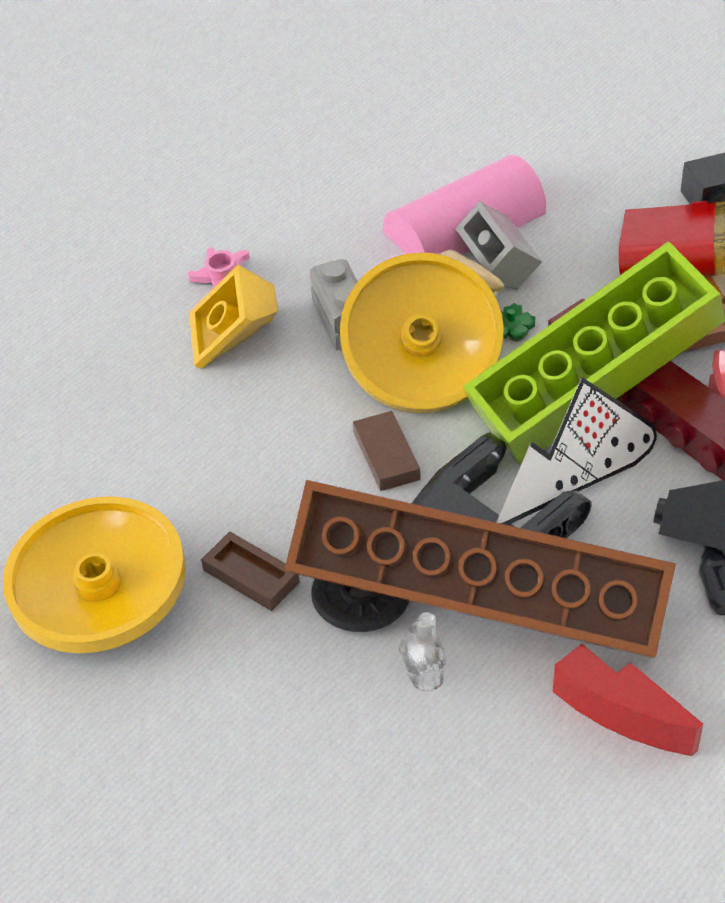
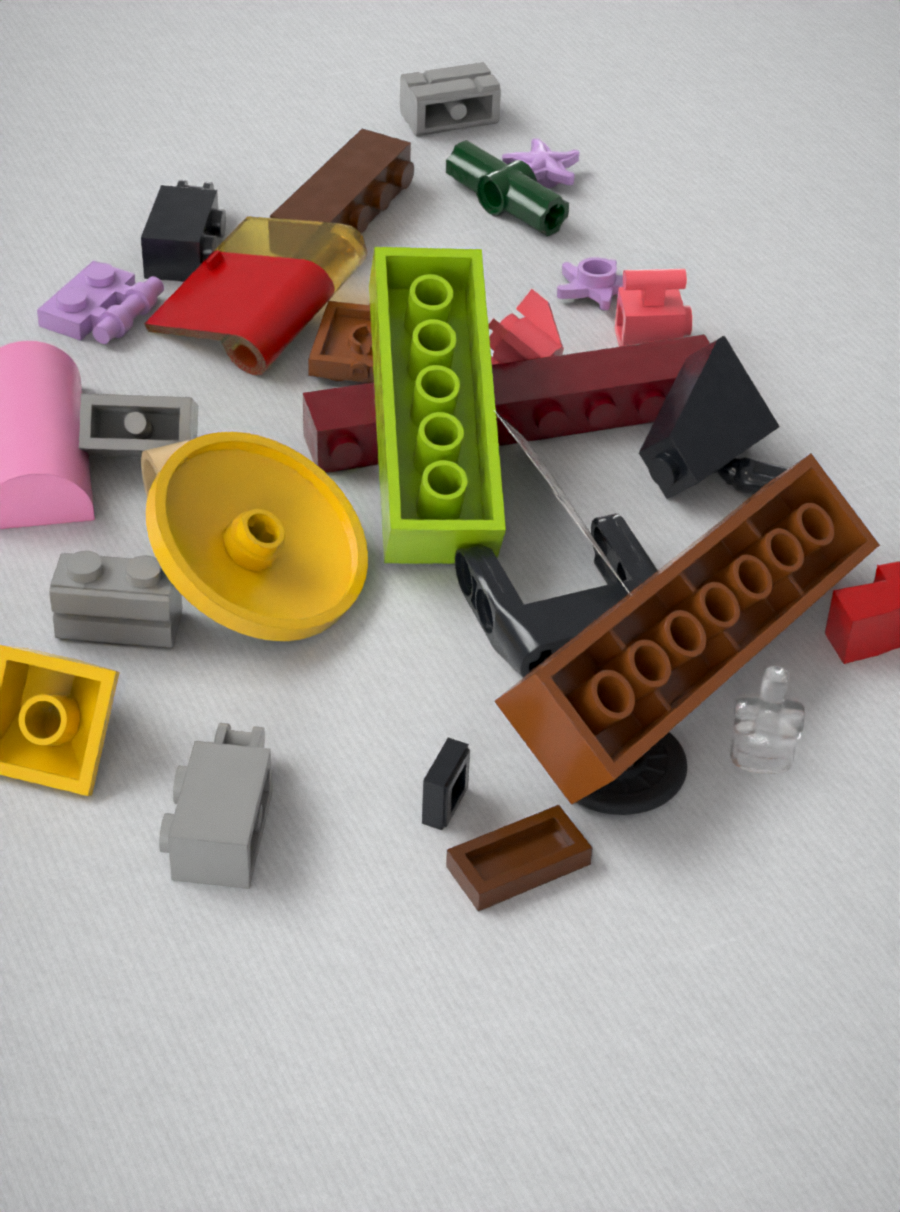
camera: 70 degrees left, 5 degrees down
(94, 574) = (457, 1008): yellow dish -> none
(208, 418) = (219, 809): none -> light grey brick
(278, 507) = (445, 784): none -> black tile
(386, 450) = (395, 661): reddish brown tile -> none
(627, 181) = (100, 302): none -> lavender plate

